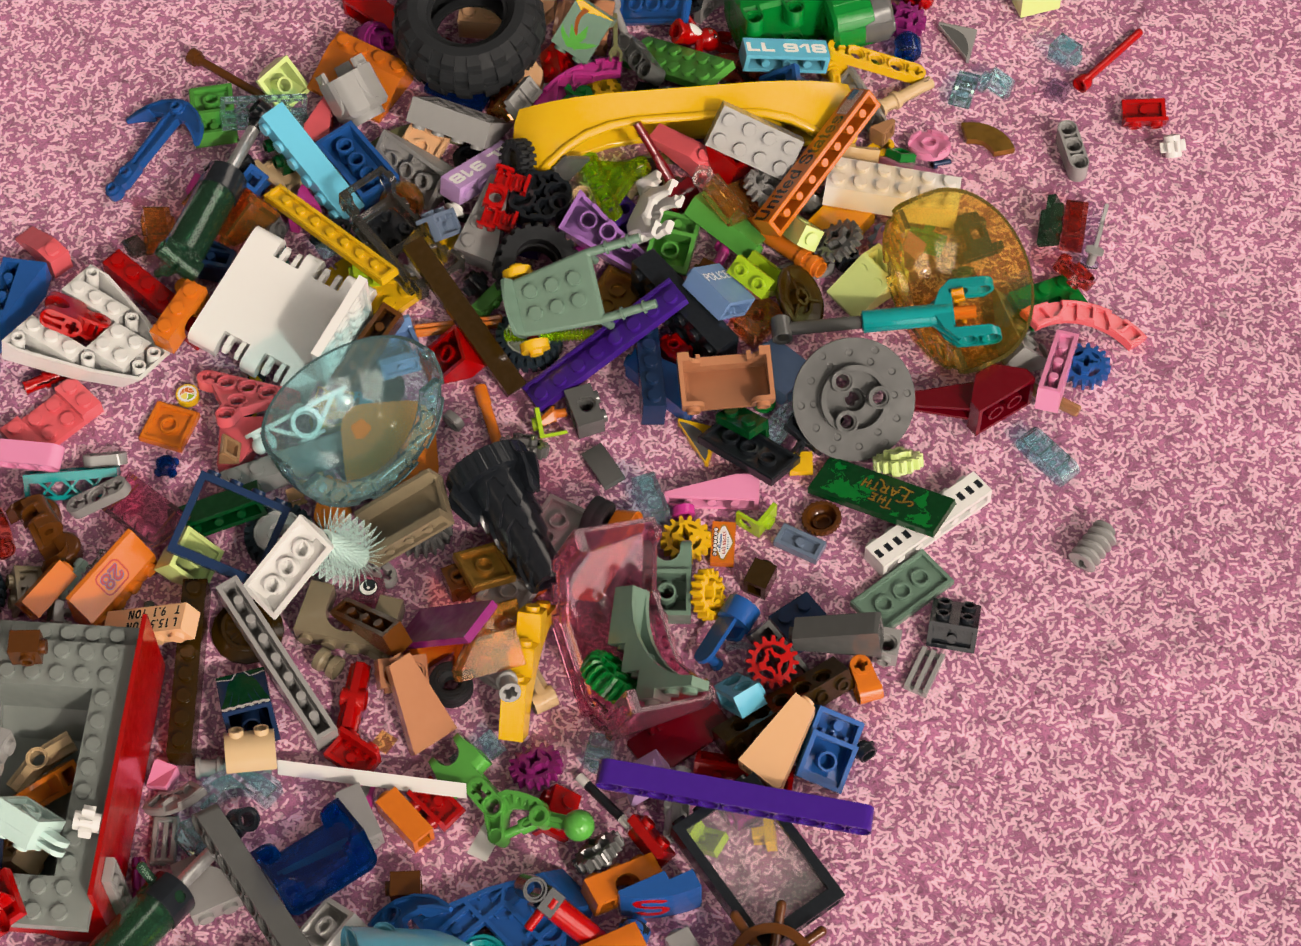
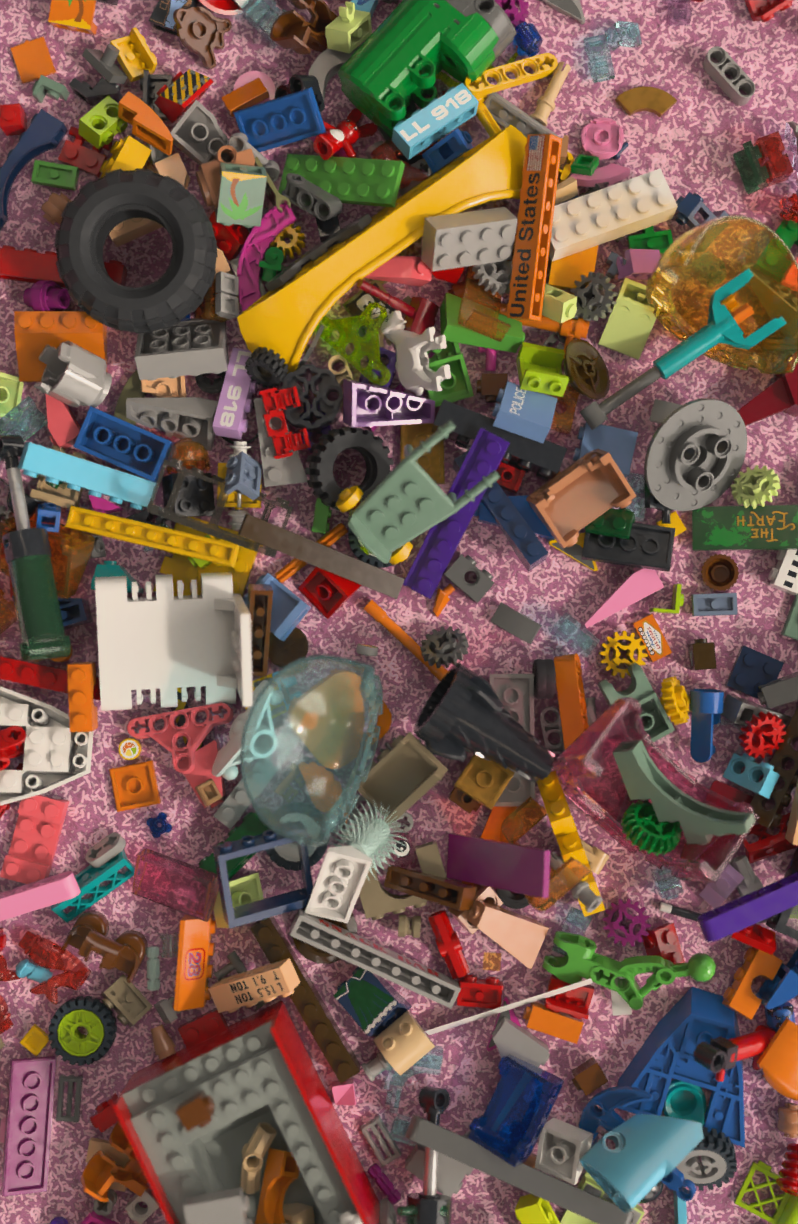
camera: 25 degrees left, 30 degrees up
(46, 589) = (147, 1001): orange brick -> none
(85, 503) = (135, 888): light grey beam -> none
(174, 801) = (370, 1111): light grey tile -> none
(475, 283) = (302, 506): black gear -> none
(537, 426) = (449, 619): lime bracket -> none
(598, 852) = (726, 971): dark grey gear -> none
(683, 509) = (605, 629): dark pink tile -> none
(704, 170) = (435, 288): clear bush -> none

